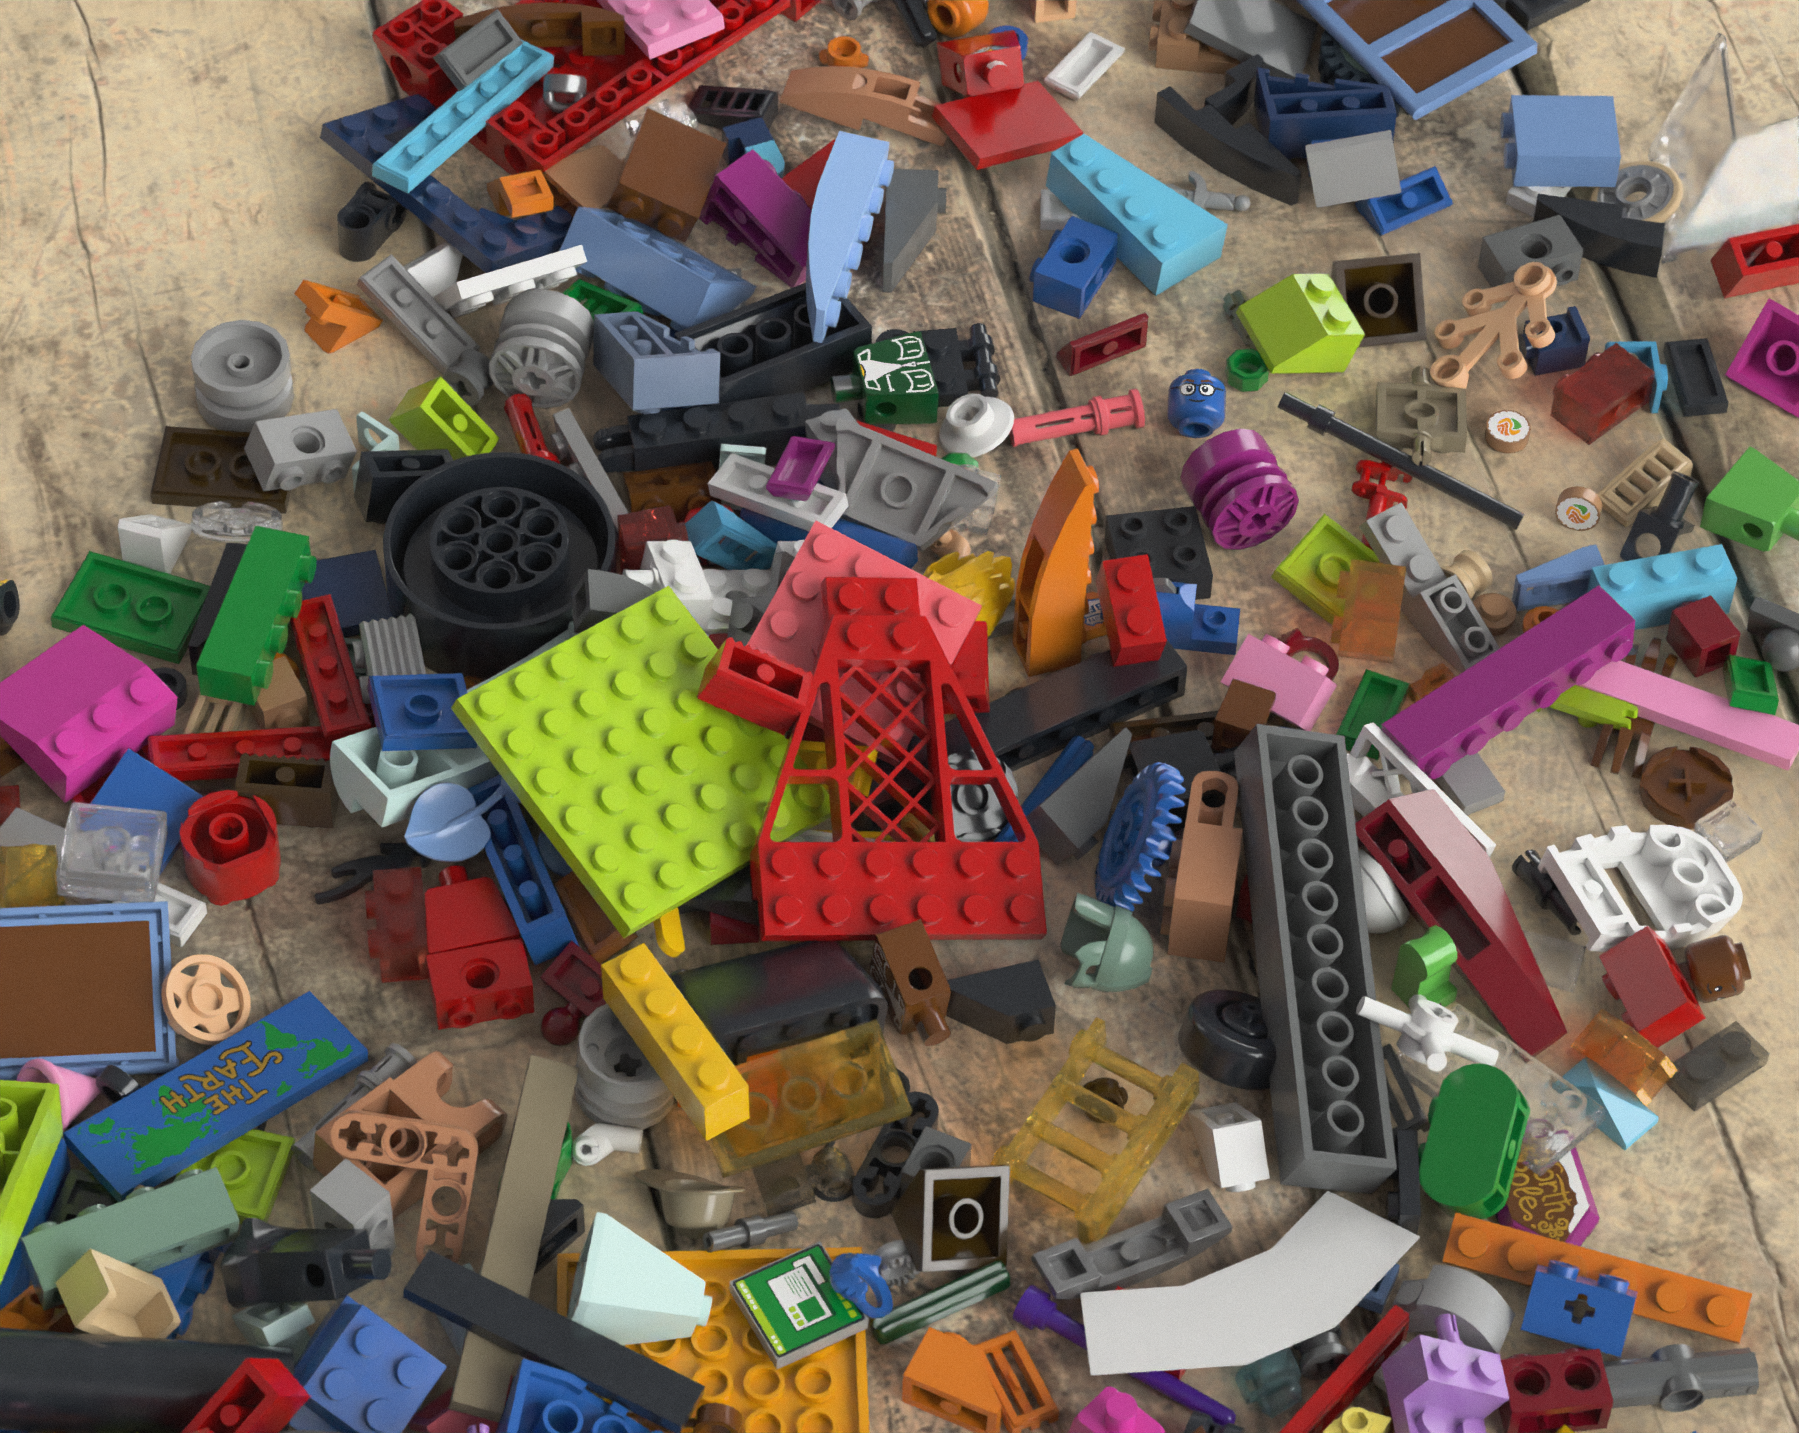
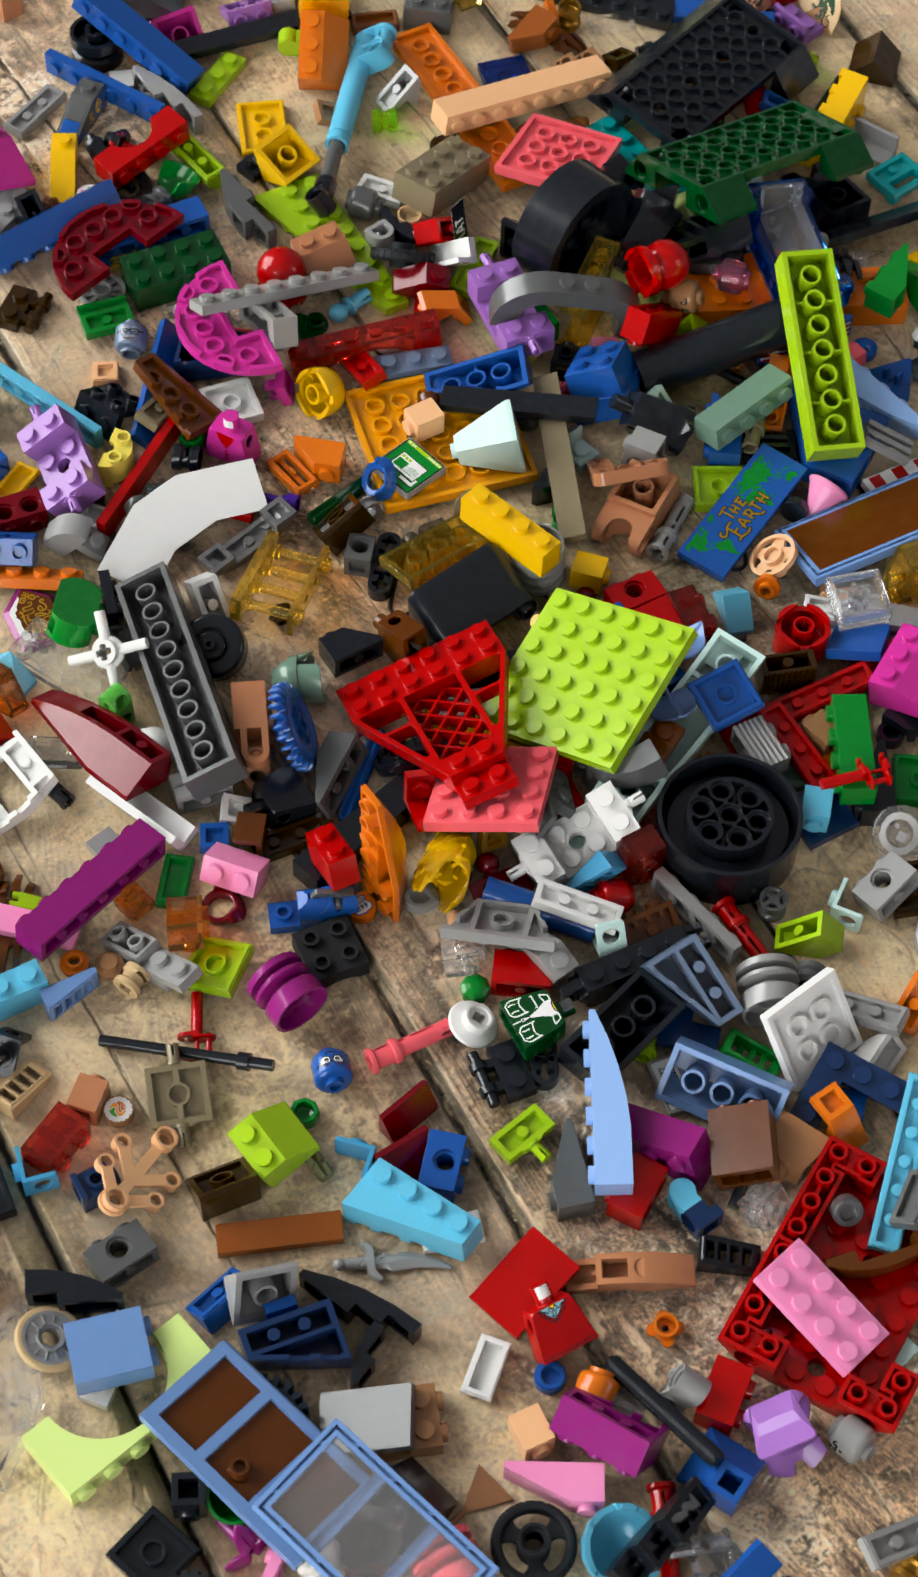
camera: 165 degrees right, 5 degrees up
(116, 1299) = (737, 370): tan panel -> none
(243, 958) = (767, 586): none -> orange plate
(278, 536) = (861, 774): none -> red piece
(314, 946) = (735, 610): none -> medium azure slope
(350, 572) = (816, 808): none -> medium azure brick
(388, 474) = (813, 880): black slope -> none
(539, 1036) = (590, 571): none -> yellow brick
(743, 1379) = (423, 420): none -> light nougat brick
(750, 1231) = (446, 505): dark grey bar -> none
(755, 686) = (536, 715): red brick -> none
(799, 468) = (567, 909): magenta tile -> none
(951, 282) = (524, 1136): none -> lime plate
(1124, 297) = (407, 1152): none -> dark red slope
(1185, 307) = (356, 1149): none -> dark azure bracket
(1300, 248) = (279, 1233): none -> dark orange tile
(1549, 441) = (89, 1096): none -> nougat brick
(1578, 508) = (62, 1052): tile -> none
(1602, 65) = (83, 1463): none -> yellowish green arch

